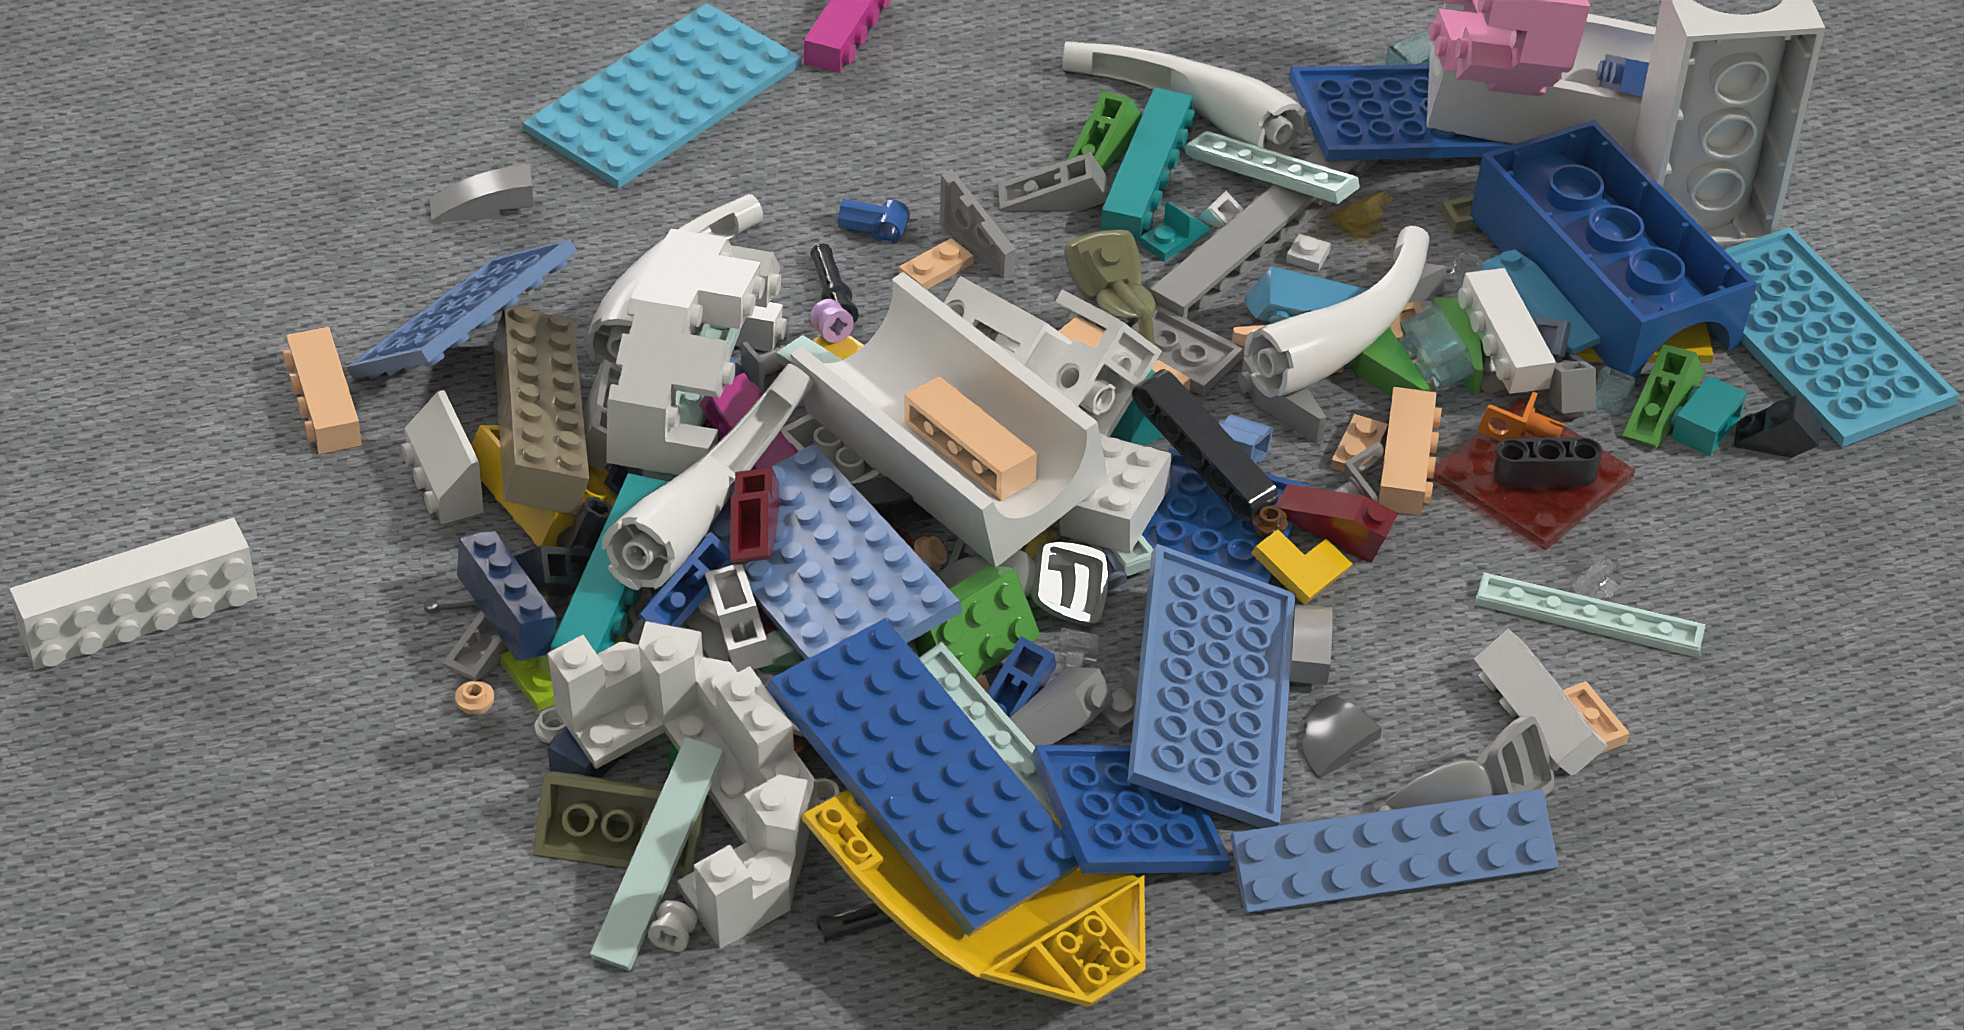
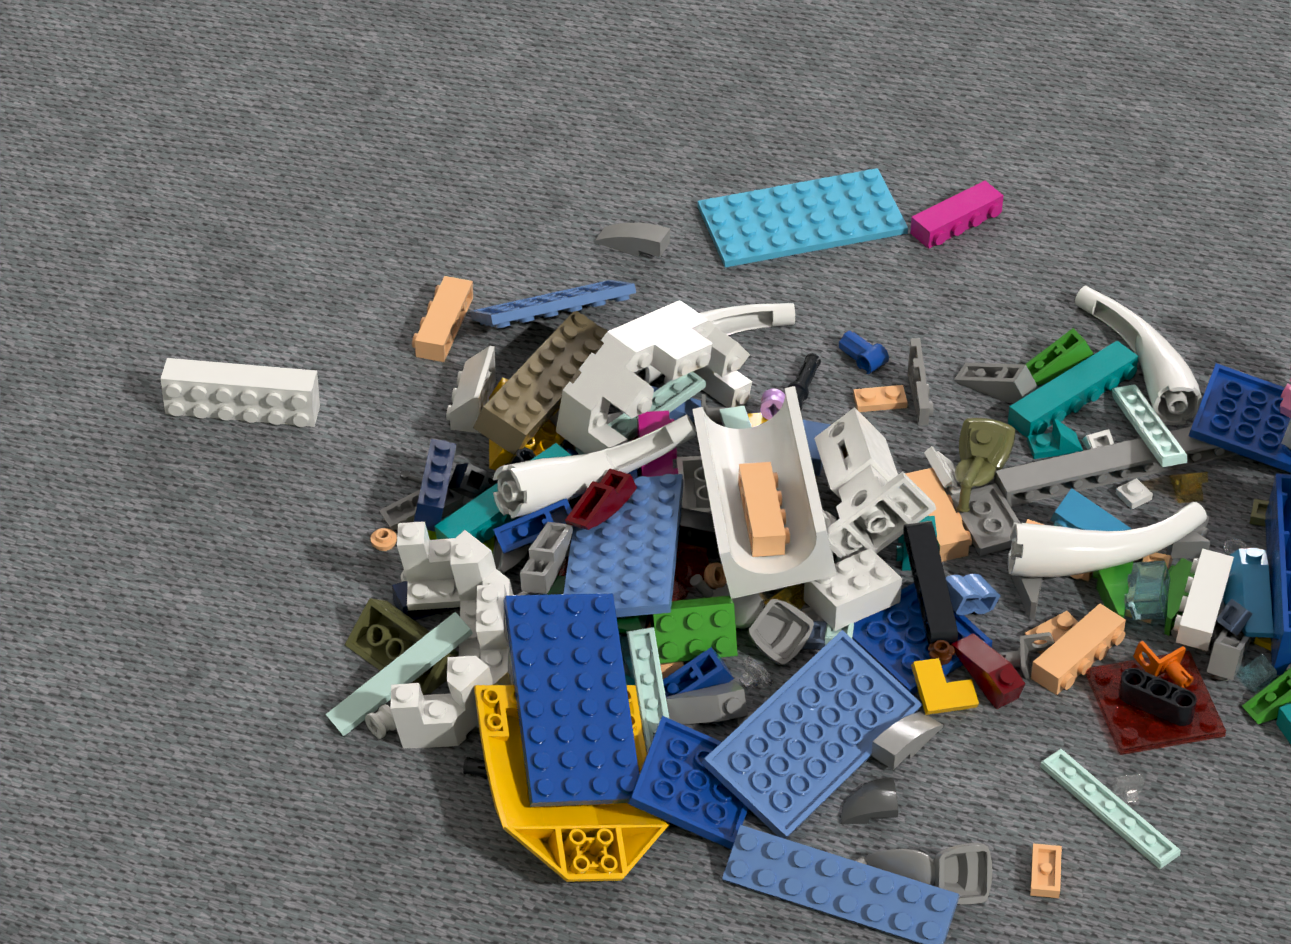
camera: 35 degrees right, 0 degrees up
(1533, 692) = (1016, 844): white brick -> none

